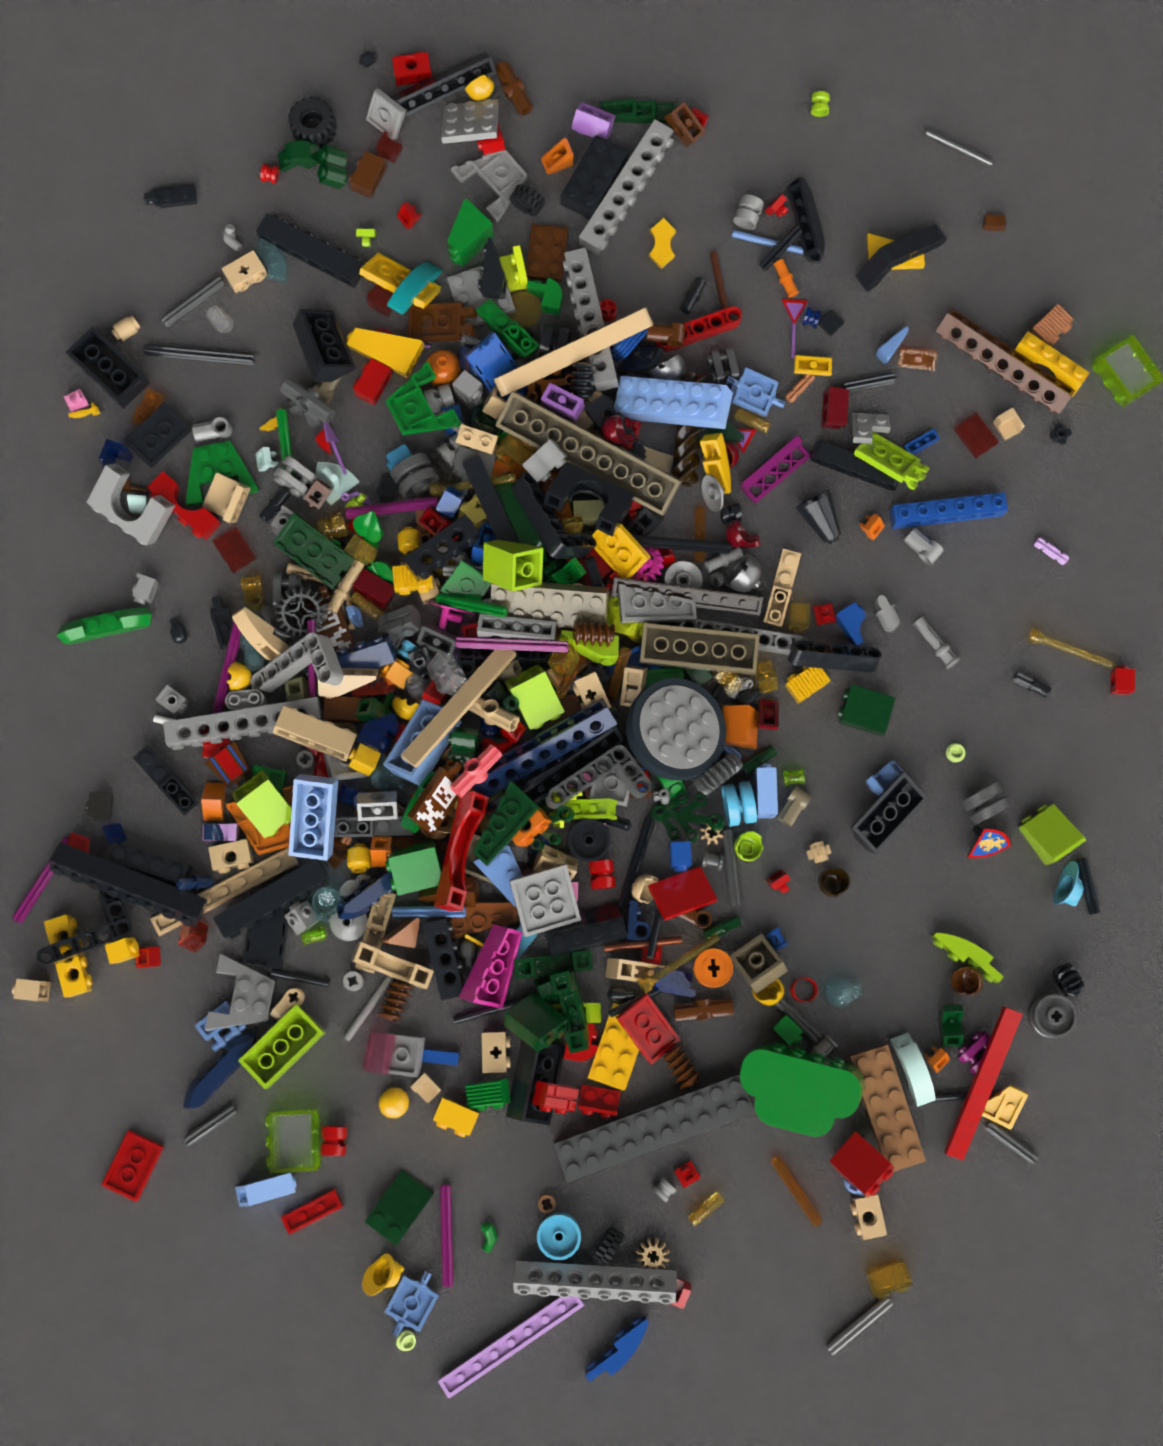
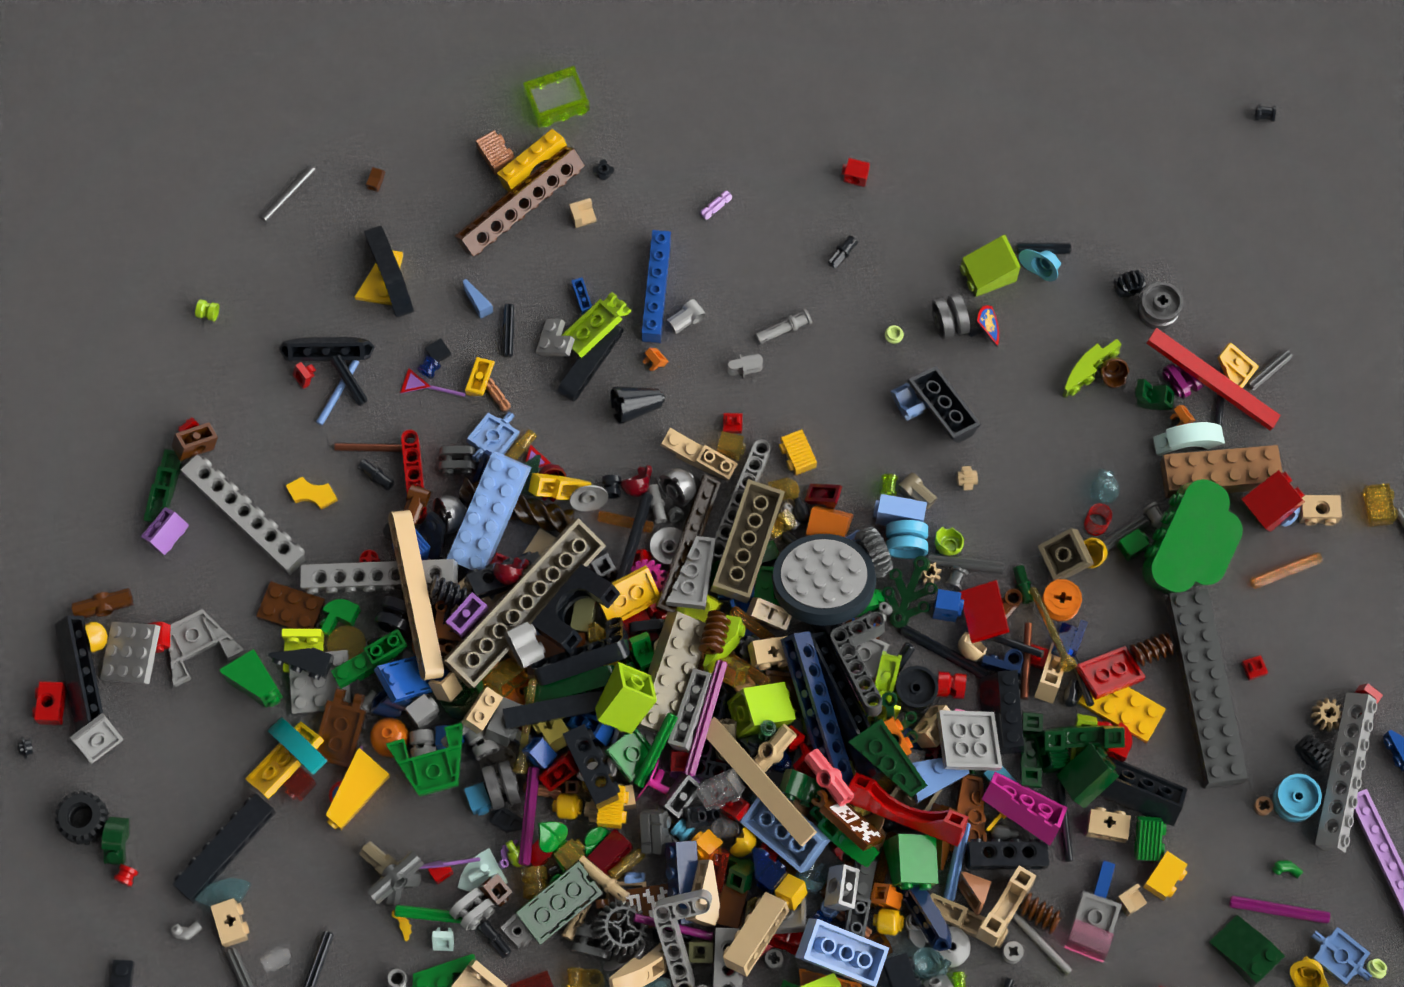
camera: 75 degrees left, 10 degrees down
(323, 344) = (335, 852): black slope -> none
(332, 166) = (138, 805): dark green brick -> none
(366, 235) = (224, 787): lime tile -> none
(368, 174) = (155, 771): reddish brown brick -> none
(372, 381) = (386, 811): red brick -> none
(388, 148) = (132, 744): clear red panel -> none
(393, 1102) = (1141, 936): yellow hair -> none
(408, 215) = (213, 739): red tile -> none
(527, 200) = (232, 613): black tyre -> none
(555, 1096) = (1163, 773): red brick -> none
(558, 157) = (192, 574): orange slope -> none
(593, 177) = (225, 543): black brick -> none
(599, 1100) = (1171, 736): red bracket -> none
(664, 1189) = (1266, 691): light grey wheel -> none
(703, 1009) = (1100, 618): reddish brown piece -> none
(706, 1209) = (1290, 656): clear yellow axle -> none
(748, 212) = (305, 403): light grey wheel -> none
(759, 759) = (864, 512): dark green axle -> none
(770, 465) = (564, 425): magenta fence -> none
(779, 881) = (988, 521): red tile -> none
(782, 943) = (1048, 532): blue bush -> none
(786, 278) = (381, 382): orange pin -> none
(833, 882) = (999, 470): dark brown hair -> none
(834, 656) = (779, 419): black beam -> none
(835, 408) = (527, 366): dark red hinge -> none
(850, 621) = (746, 399): blue arch -> none
(866, 710) = (837, 404): dark green brick -> none
(917, 358) = (494, 280): clear orange slope -> none
(976, 436) = (586, 245): clear red plate -> none
(1037, 637) = (797, 236): clear yellow piece -> none

